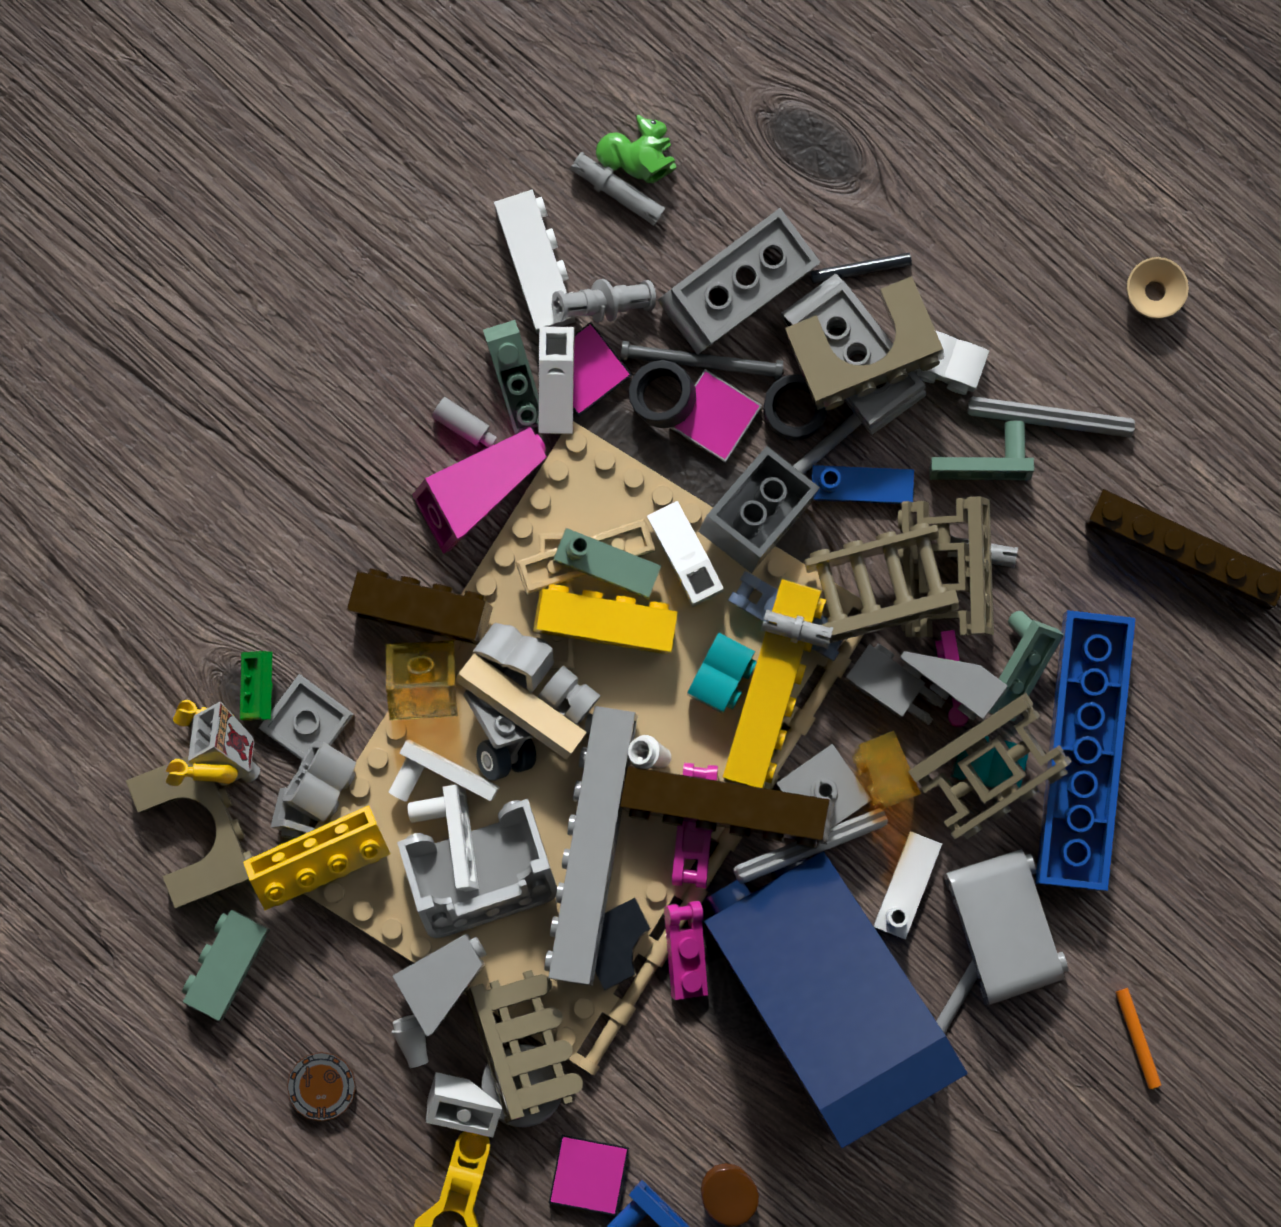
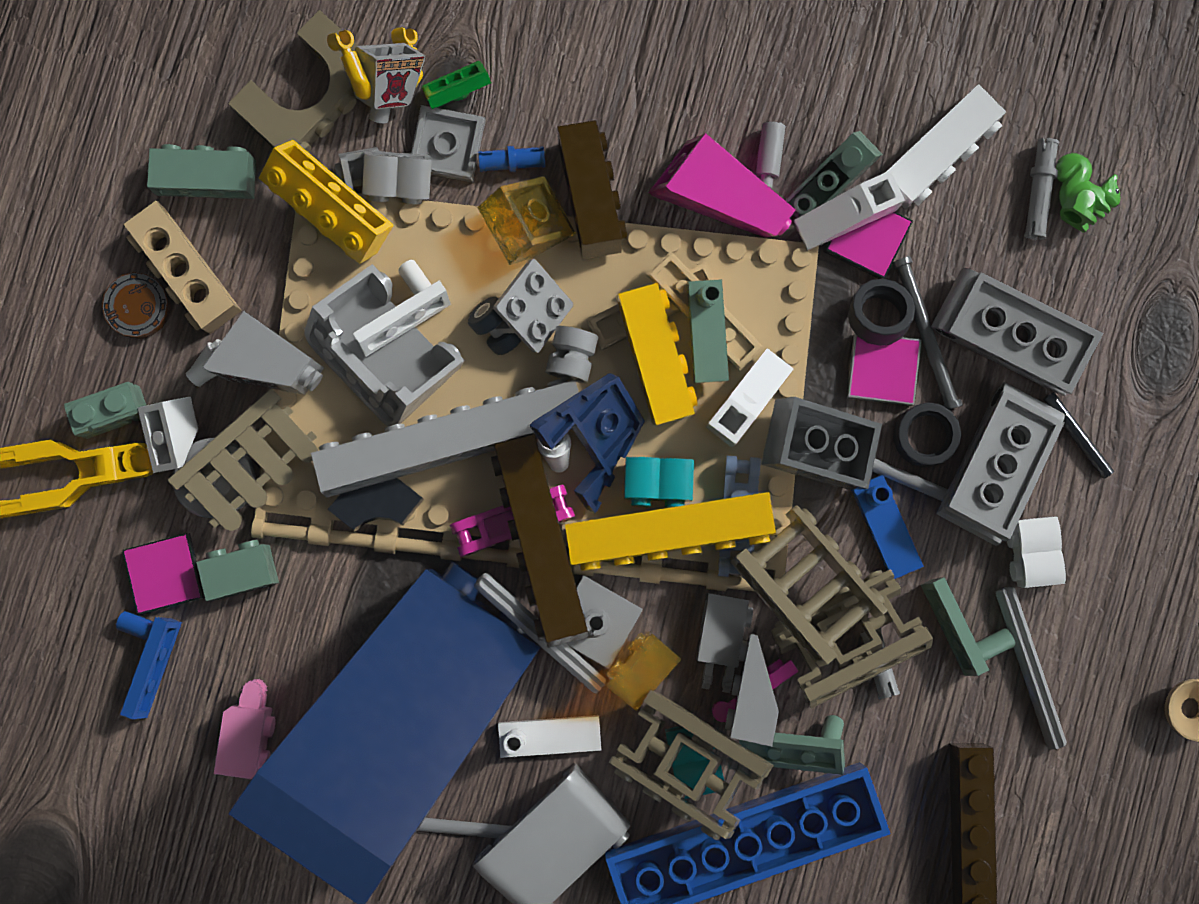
camera: 65 degrees right, 0 degrees up
(254, 1028) = (156, 223): none -> tan brick
(352, 667) = (511, 159): none -> blue pin
(411, 1156) = (105, 410): none -> sand green brick
(419, 757) = (458, 251): white piece -> none
(517, 656) = (584, 288): light grey brick -> none
(520, 706) = (542, 313): tan tile -> none
(603, 300) = (940, 219): light grey piece -> none
(620, 1102) = (238, 571): none -> sand green brick
(647, 698) = (604, 423): none -> dark blue wing
(686, 951) = (397, 566): dark pink plate -> none
(729, 1194) = (200, 706): reddish brown piece -> none
(774, 1164) = (245, 733): none -> bright pink hinge
(797, 629) = (730, 527): light grey pin -> none
(834, 380) = (975, 456): dark tan arch -> none

